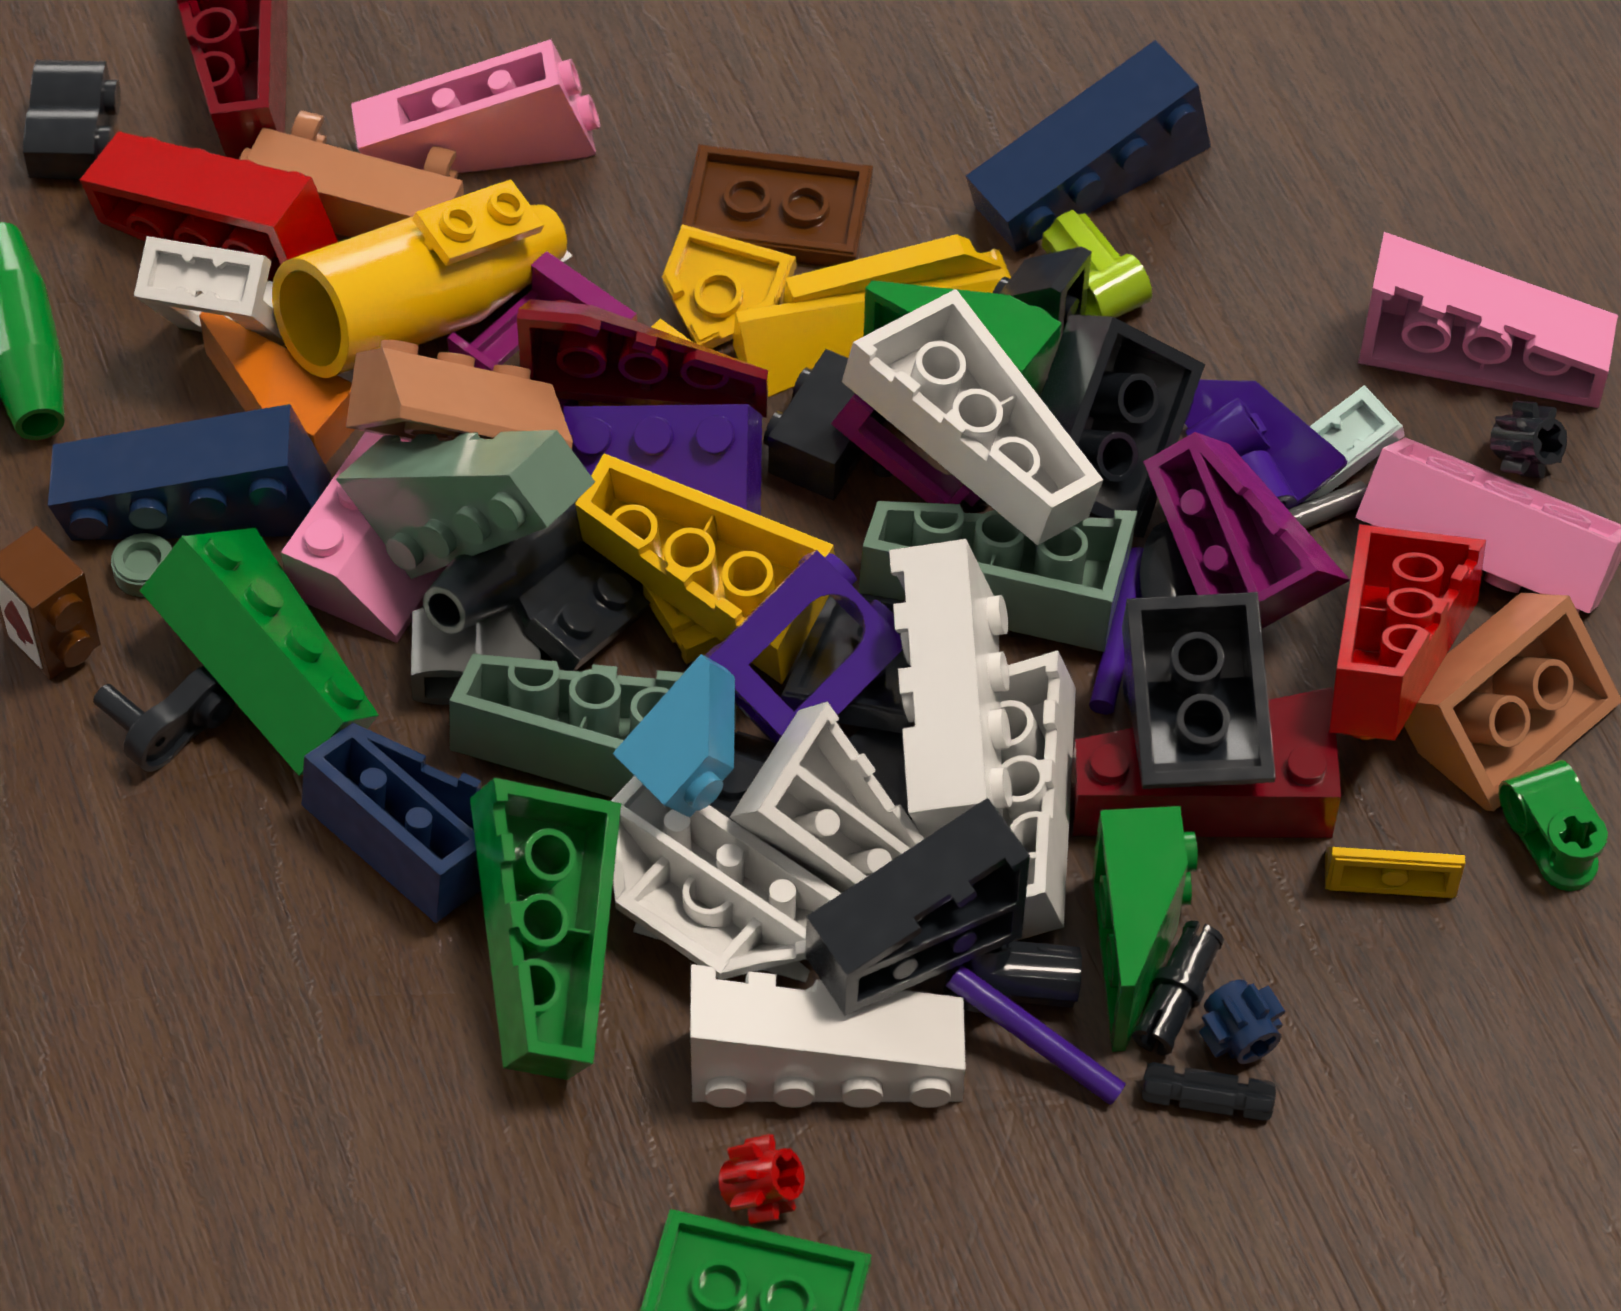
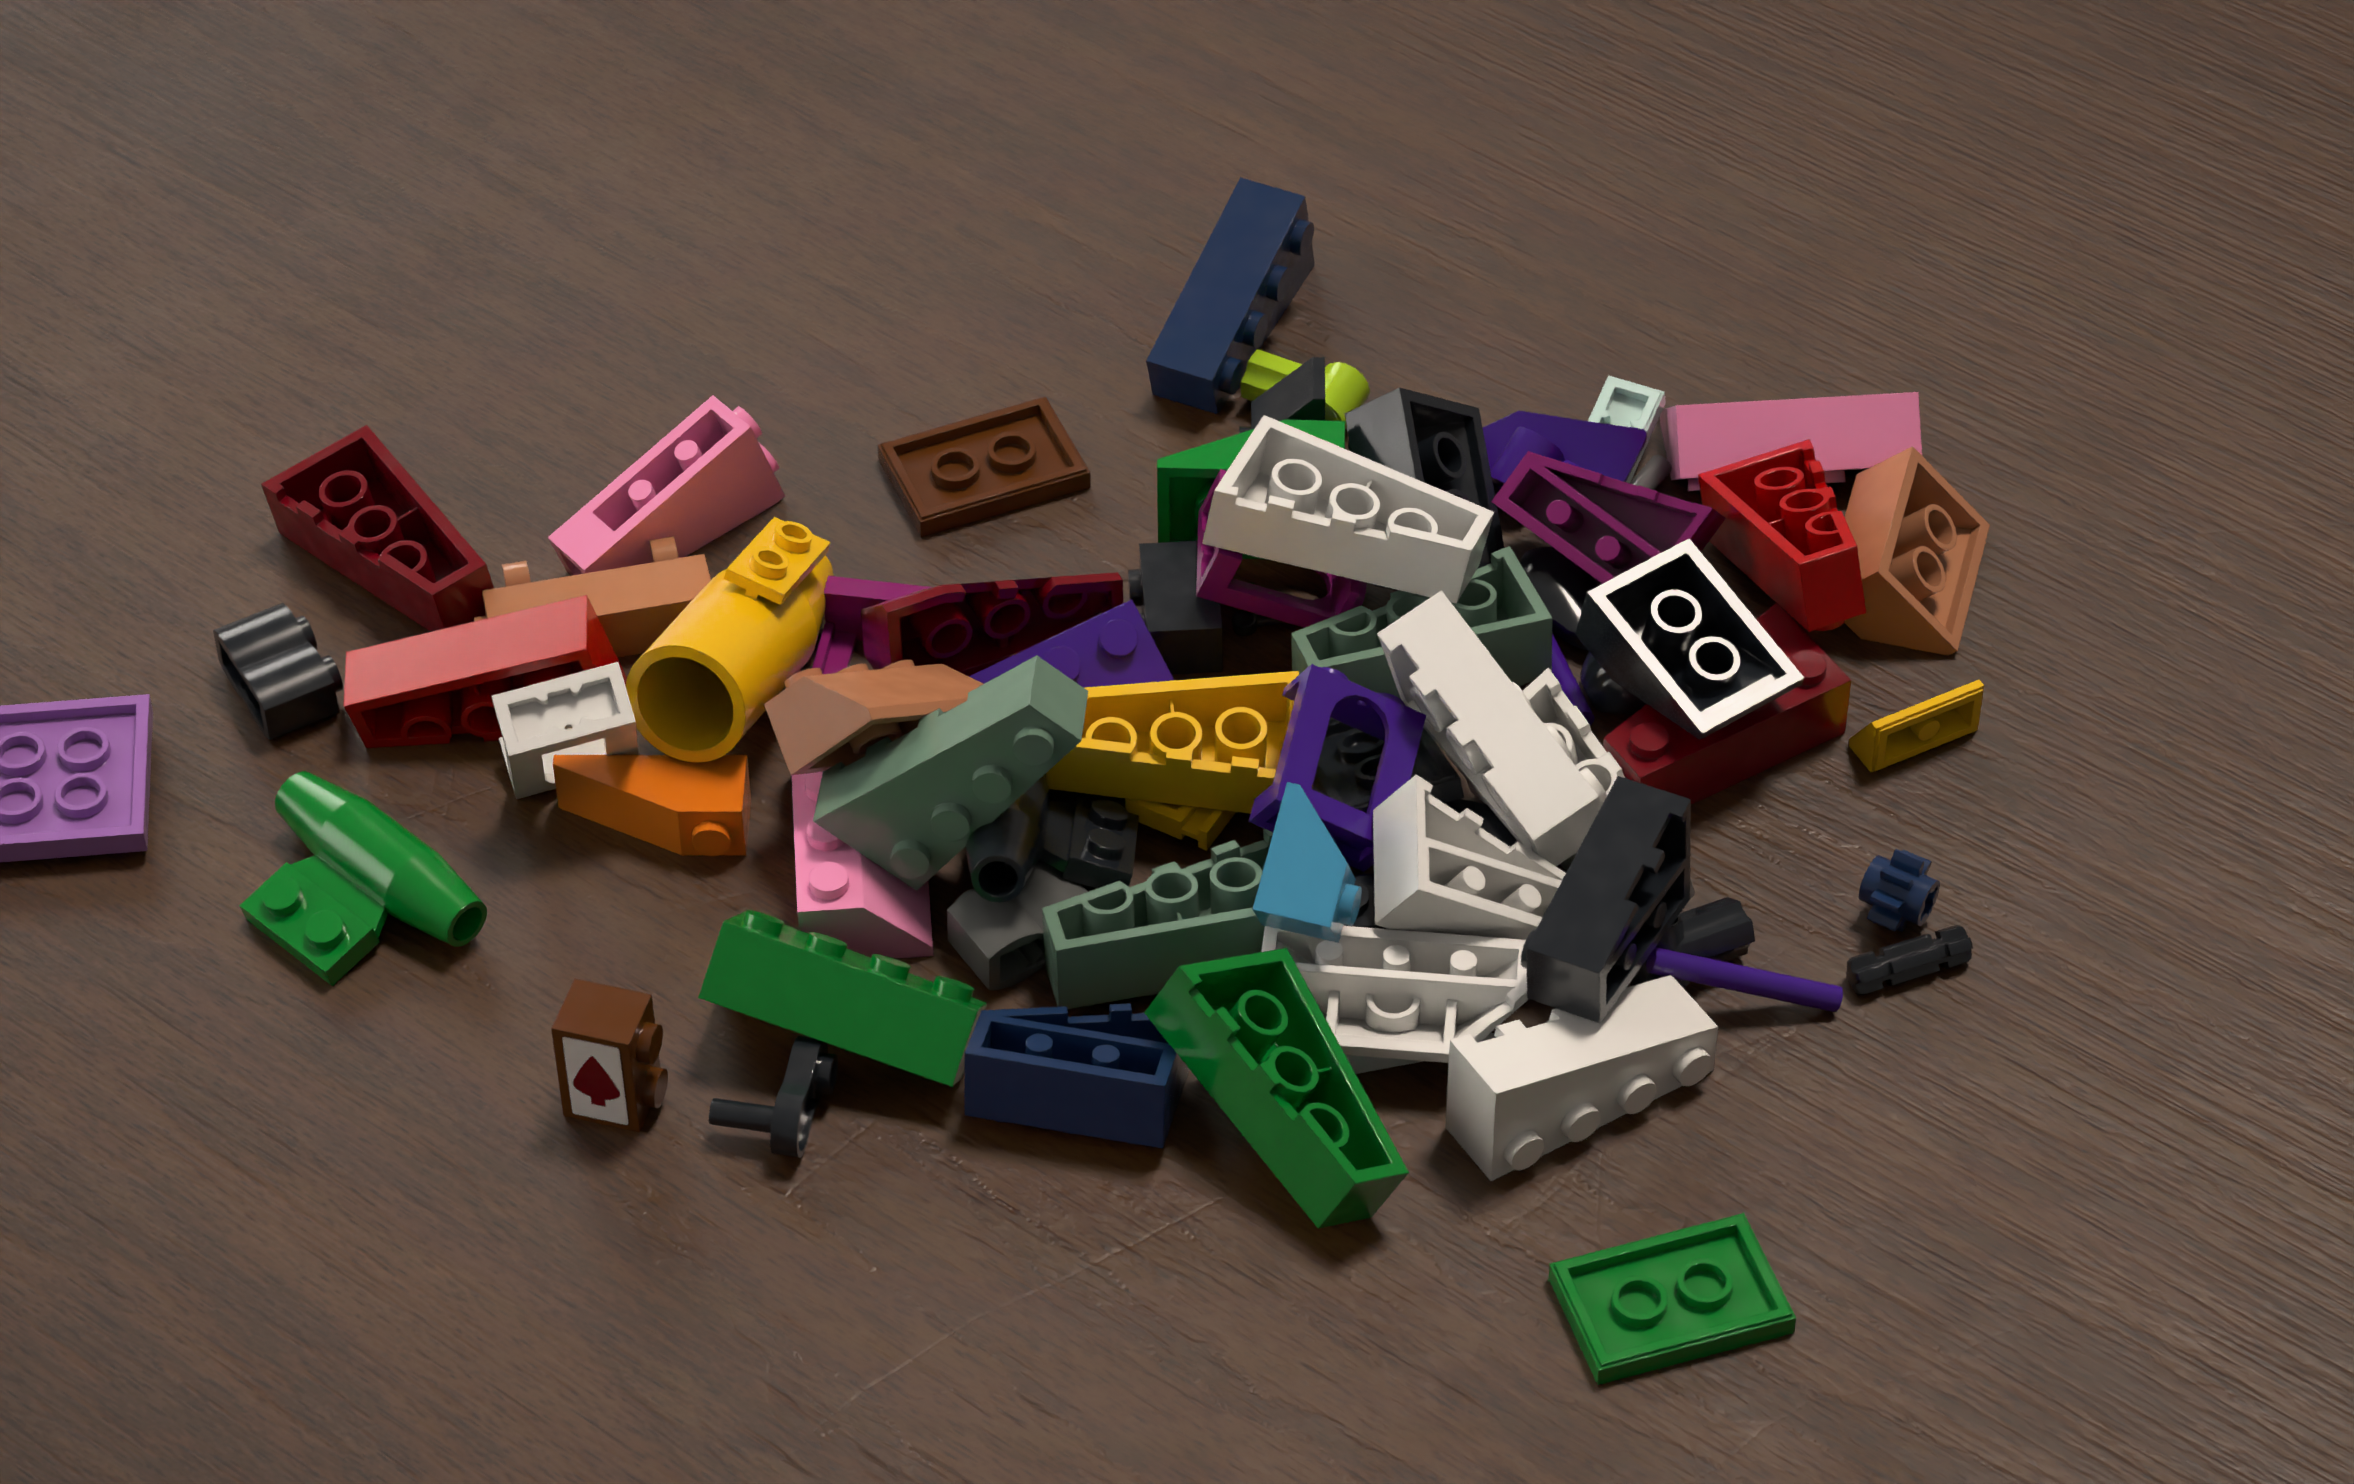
camera: 30 degrees left, 10 degrees down
(136, 560) = (666, 991): sand green tile -> none
(189, 478) = (654, 897): dark blue wedge -> none
(718, 276) = (995, 536): yellow plate -> none
(761, 1179) = (1612, 1198): red gear -> none
(827, 304) = (1119, 504): yellow wedge -> none
(1138, 896) = (1756, 844): green slope -> none
(1178, 987) = (1823, 894): black pin -> none
(1483, 327) = (1662, 294): bright pink wedge -> none
(1528, 439) = (1767, 361): black gear -> none
(1555, 824) = (2015, 628): green piece -> none

